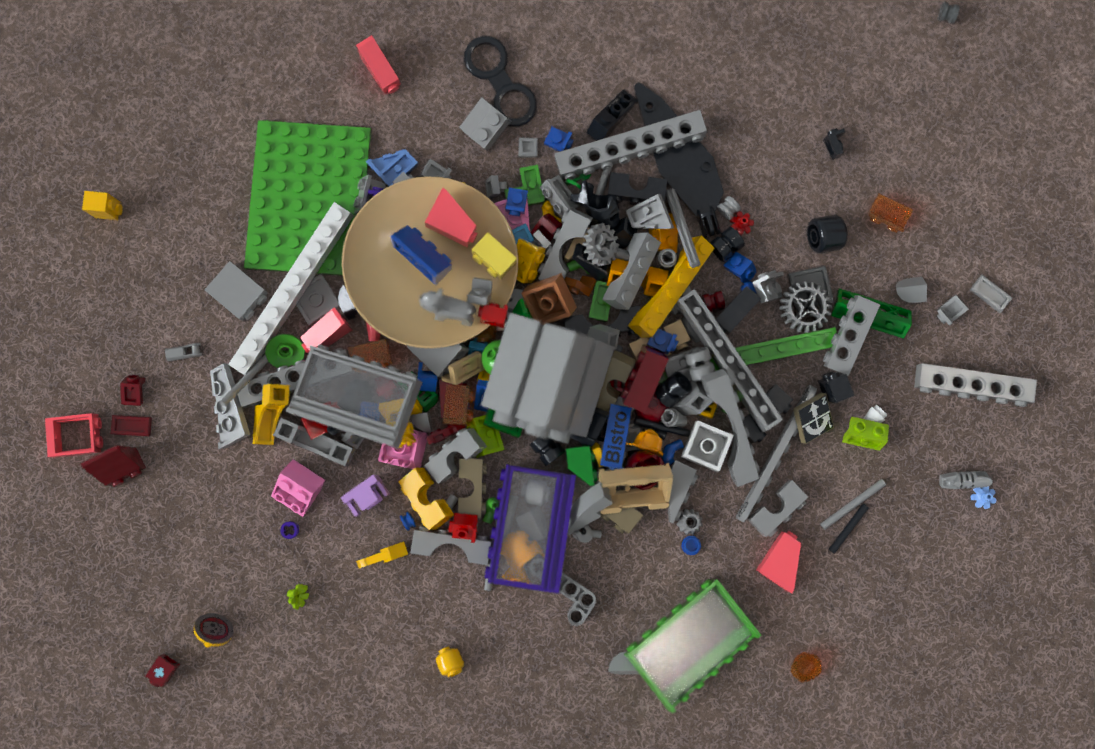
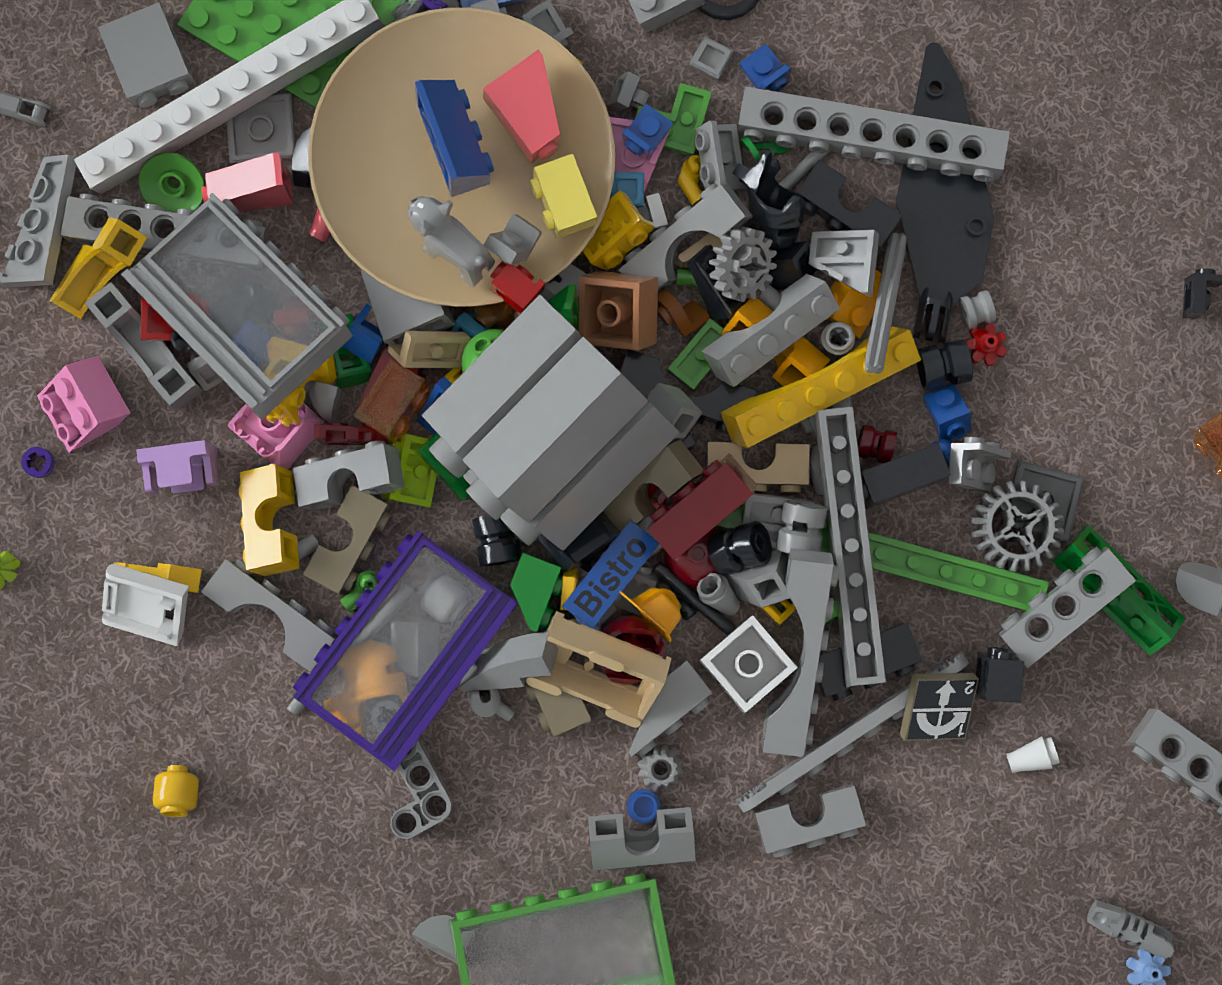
camera: 30 degrees right, 0 degrees up
(244, 381) = (84, 197): light grey bar -> none
(373, 351) = (309, 254): clear orange brick -> none
(380, 574) = (140, 602): none -> white container
(407, 521) = (224, 541): blue bush -> none
(464, 526) = (304, 593): red brick -> none
(547, 226) = (675, 194): dark red panel -> none
(611, 115) = (867, 73): black slope -> none
(663, 341) = (762, 464): blue bracket -> none
(669, 451) = (685, 642): blue arm -> none
(712, 557) = (619, 847): none -> light grey arch
(782, 561) = (773, 905): coral slope -> none
(827, 234) = (1112, 428): black head -> none
(848, 528) = (906, 909): black bar -> none
(853, 504) = (933, 875): light grey bar -> none
(866, 434) = (1011, 774): lime bracket -> none

